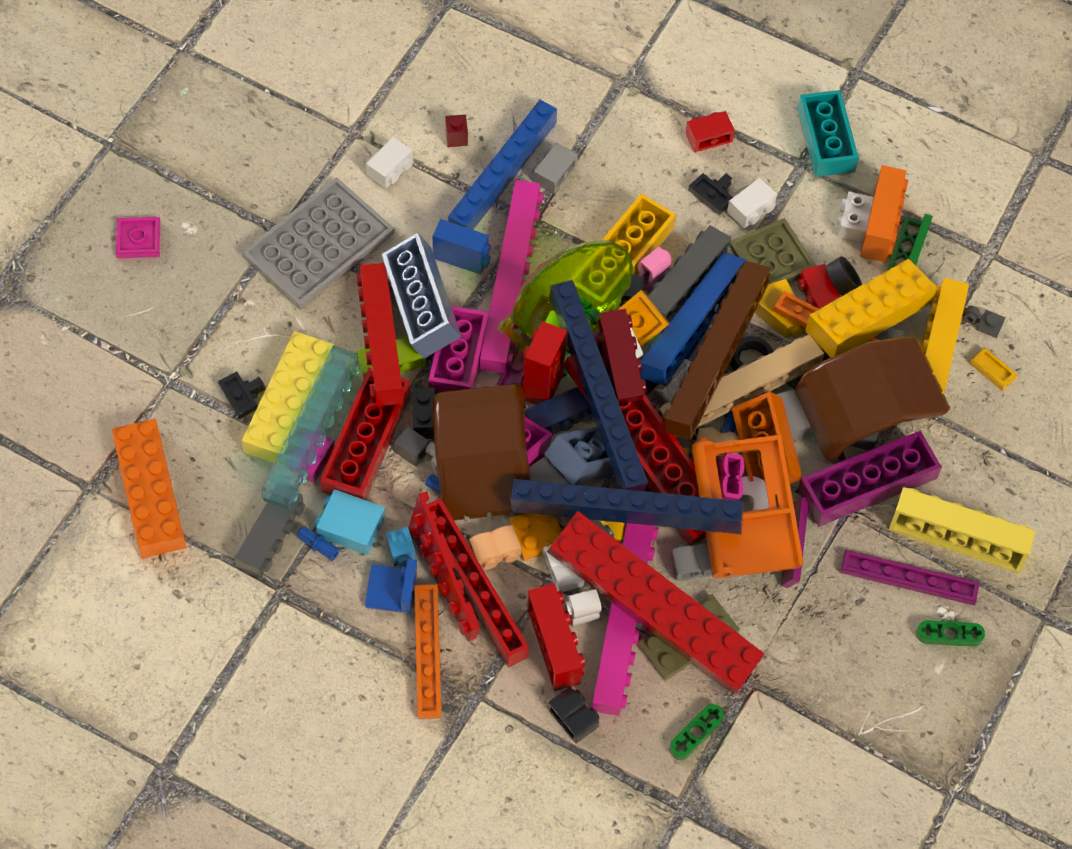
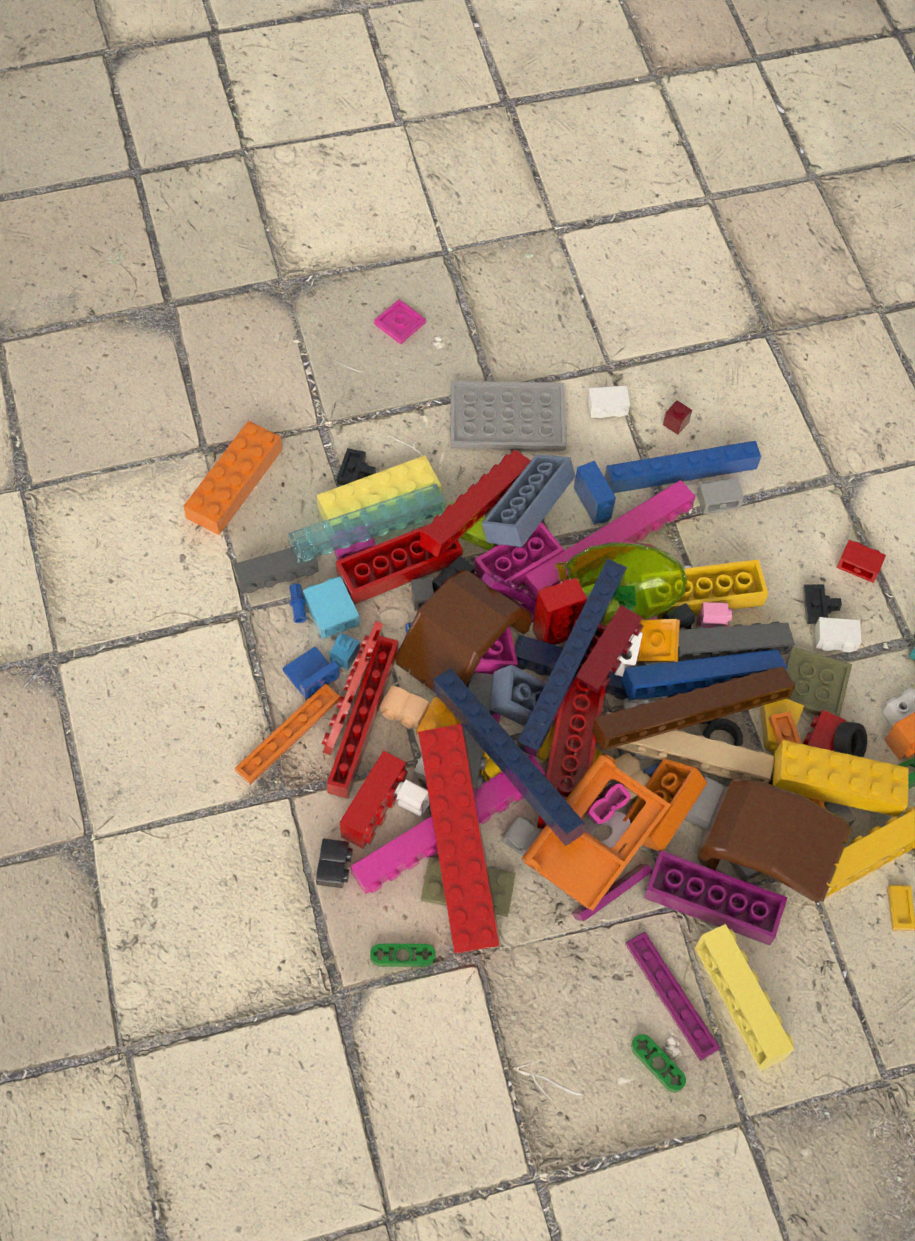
camera: 45 degrees right, 0 degrees up
(483, 380) = (510, 589): none -> magenta plate

